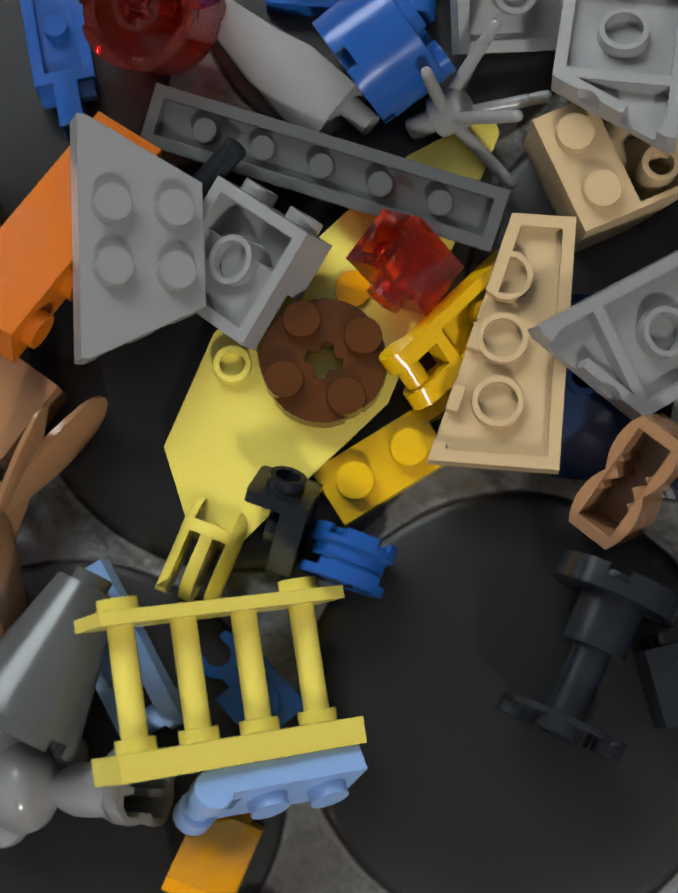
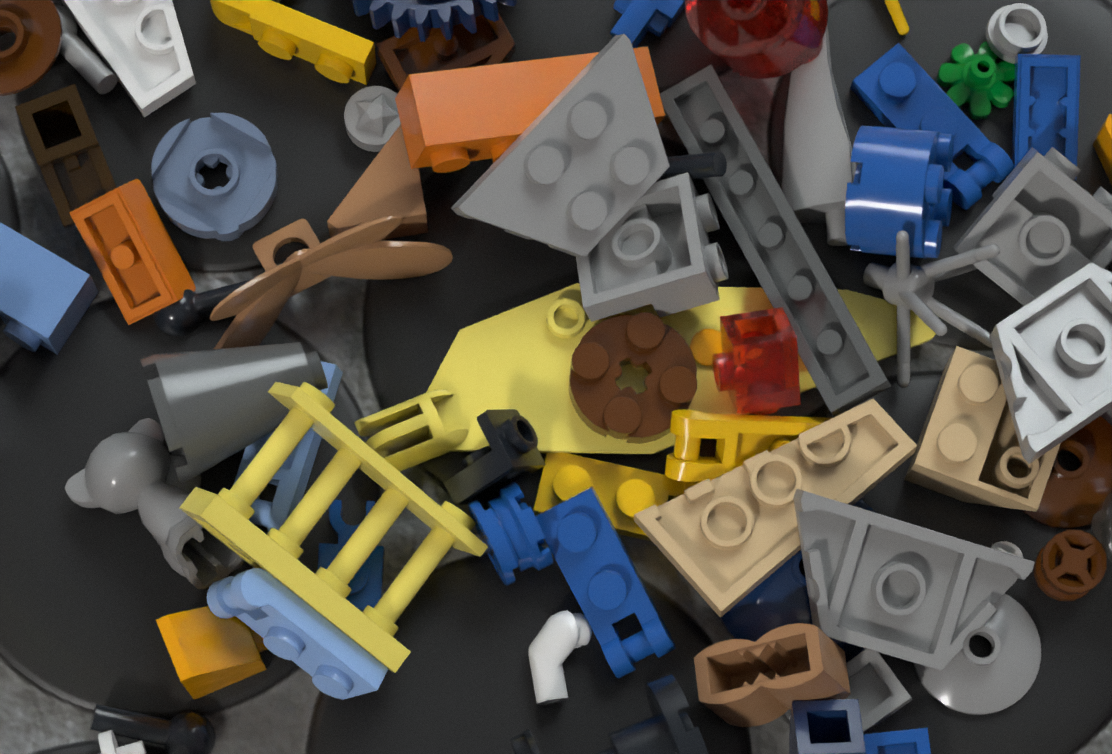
camera: 40 degrees right, 5 degrees down
(444, 526) = (604, 580): none -> blue plate
(455, 612) = (550, 649): none -> white arm

